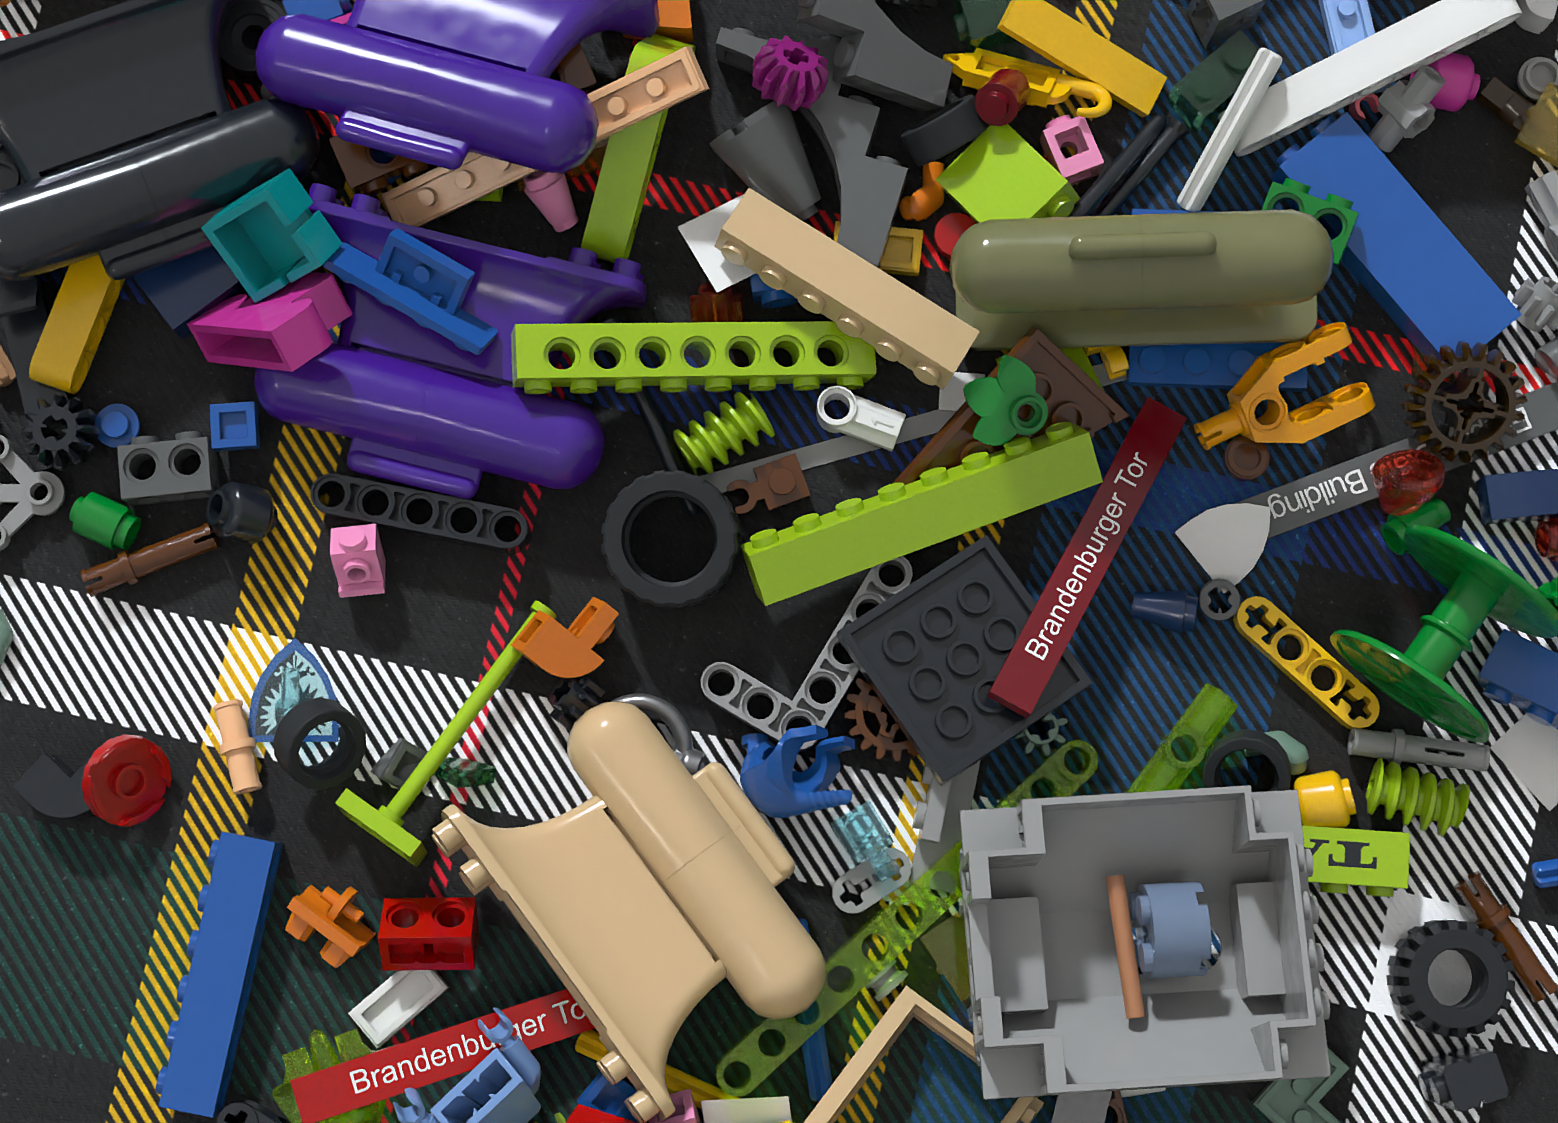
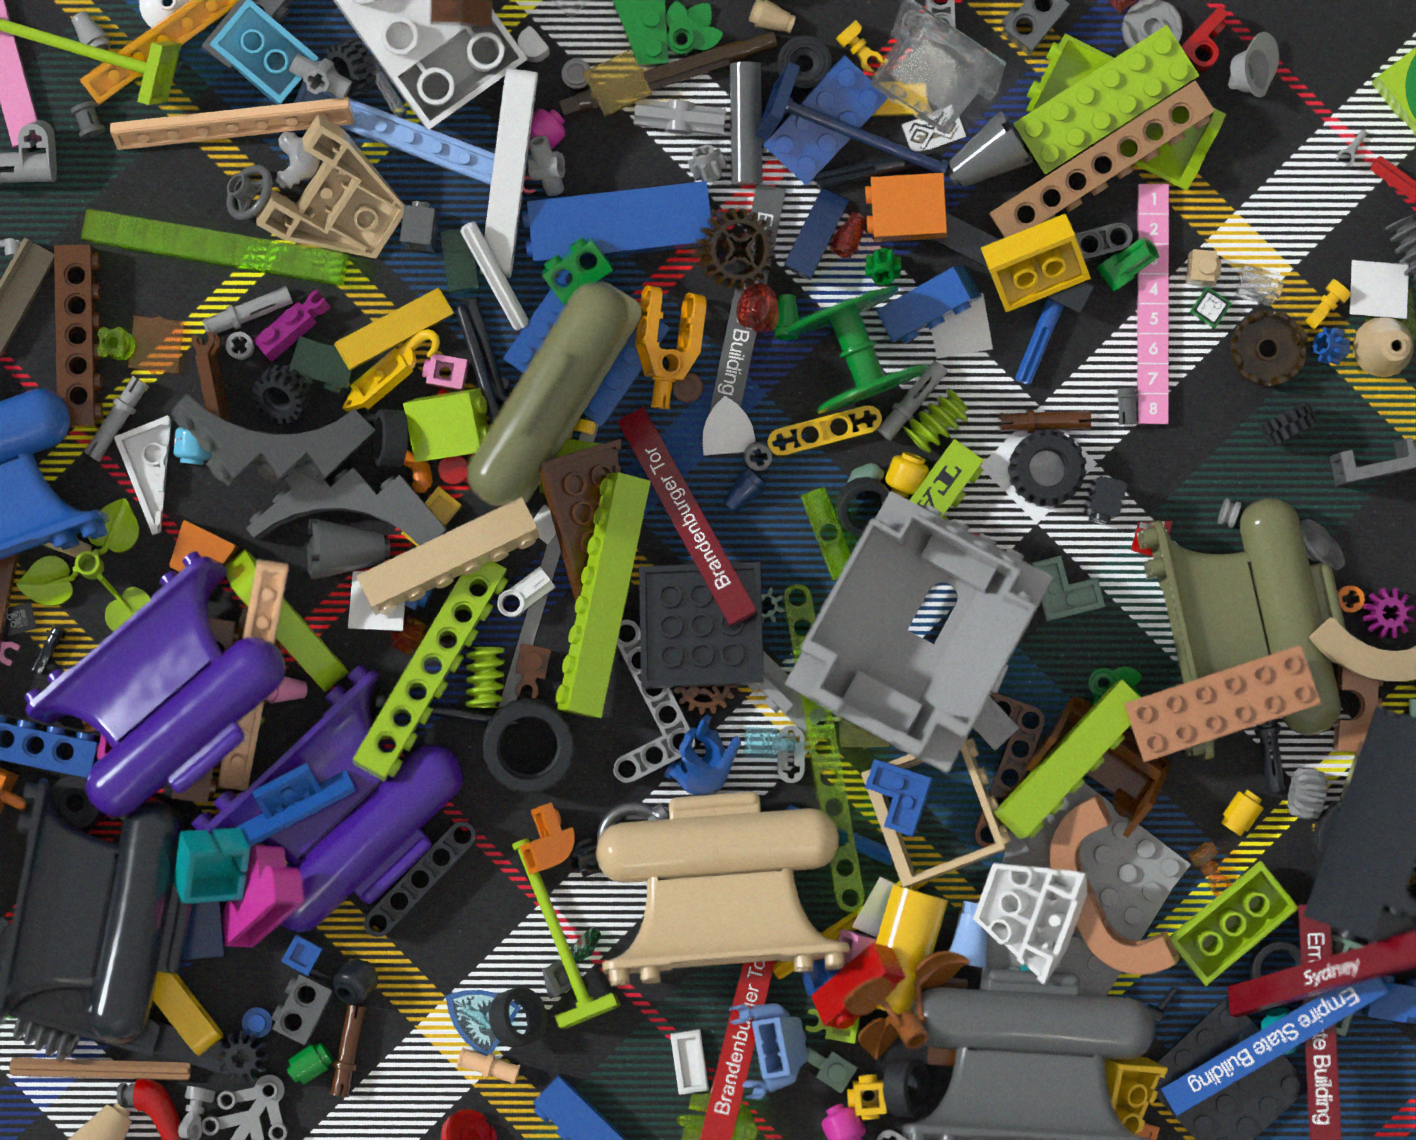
camera: 60 degrees left, 5 degrees up
(332, 917) = (620, 1070): orange hips -> none
(358, 560) = (426, 931): bright pink brick -> none
(429, 934) = (664, 1021): red brick -> none
(790, 73) = (303, 508): magenta gear -> none
(887, 980) = (851, 781): bush -> none
(922, 1063) = (908, 794): none -> blue plate
(1000, 399) = (568, 511): green plate -> none
(1002, 97) = (393, 395): dark red brick -> none
(1125, 946) = (915, 640): nougat bar -> none
(1170, 929) = (922, 609): sand blue brick -> none

